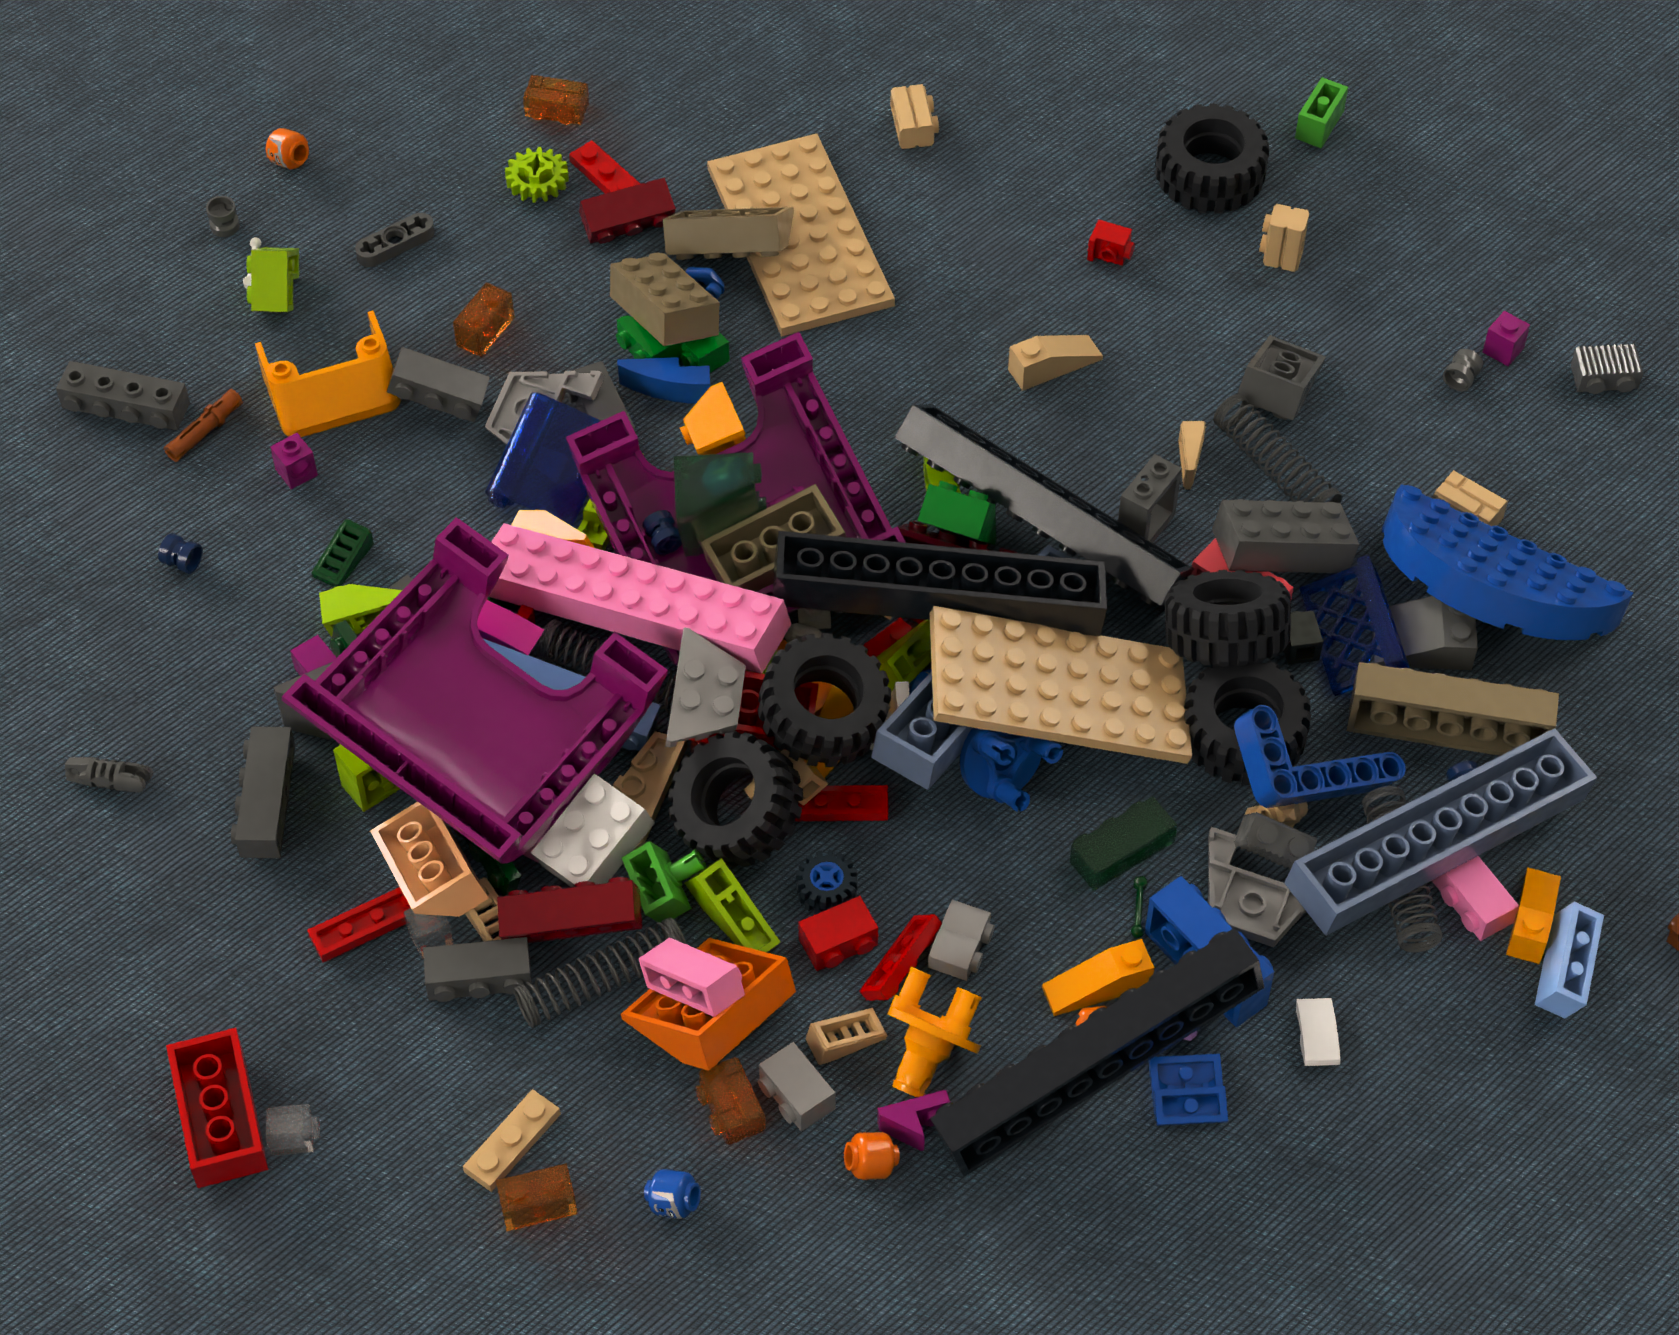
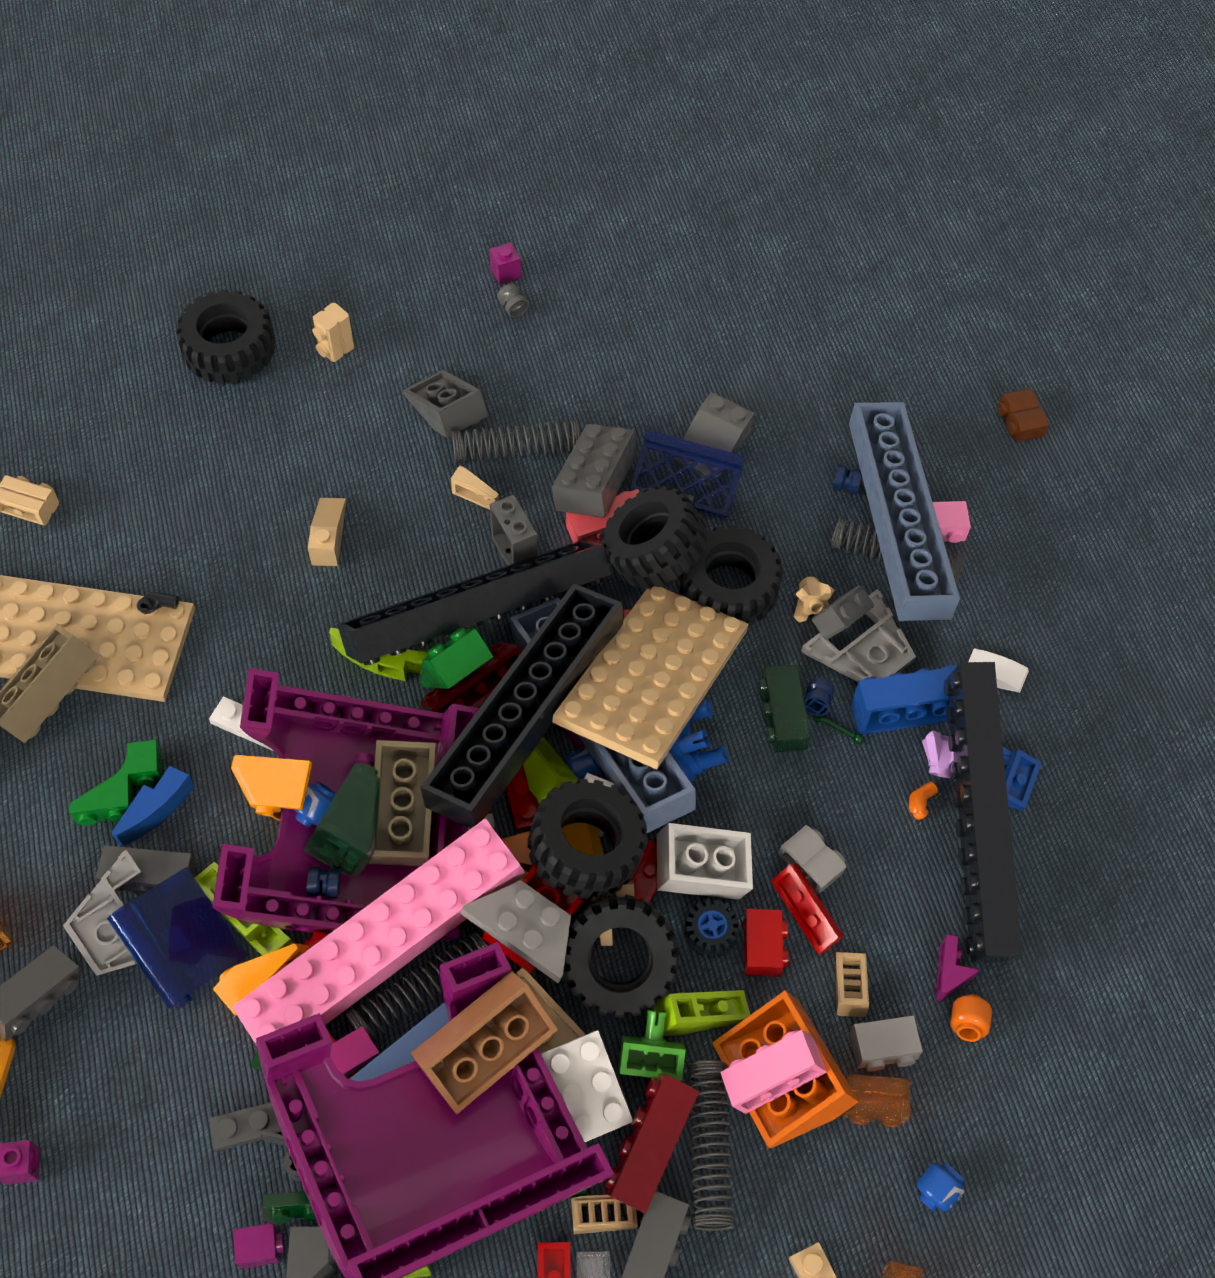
camera: 65 degrees left, 5 degrees up
(349, 535) = (135, 1142): dark green slope -> none
(355, 604) = (223, 1180): lime slope -> none
(428, 863) = (548, 1244): light nougat slope -> none
(570, 711) = (484, 1041): none -> medium nougat slope
(664, 299) = (81, 765): dark tan brick -> none
(709, 277) = (71, 723): blue arm -> none
(870, 265) = (156, 600): none -> black arm
(887, 834) = (704, 861): none -> white brick
(928, 1037) = (897, 917): light orange piece -> none
(1100, 978) = (891, 782): light orange slope -> none
(1110, 243) = (250, 438): red brick -> none
(1154, 867) = (818, 696): none -> dark blue wheel
(1280, 784) = (812, 571): blue beam -> none
(1321, 112) = (236, 254): bright green brick -> none
(1448, 709) = (793, 455): dark tan brick -> none
(1472, 498) = (626, 358): tan brick -> none
(1496, 574) = (695, 374): blue brick -> none
(1534, 916) = (982, 503): light orange slope -> none
(1569, 960) = (1017, 497): light blue brick -> none
(1606, 368) = (565, 227): dark grey brick -> none

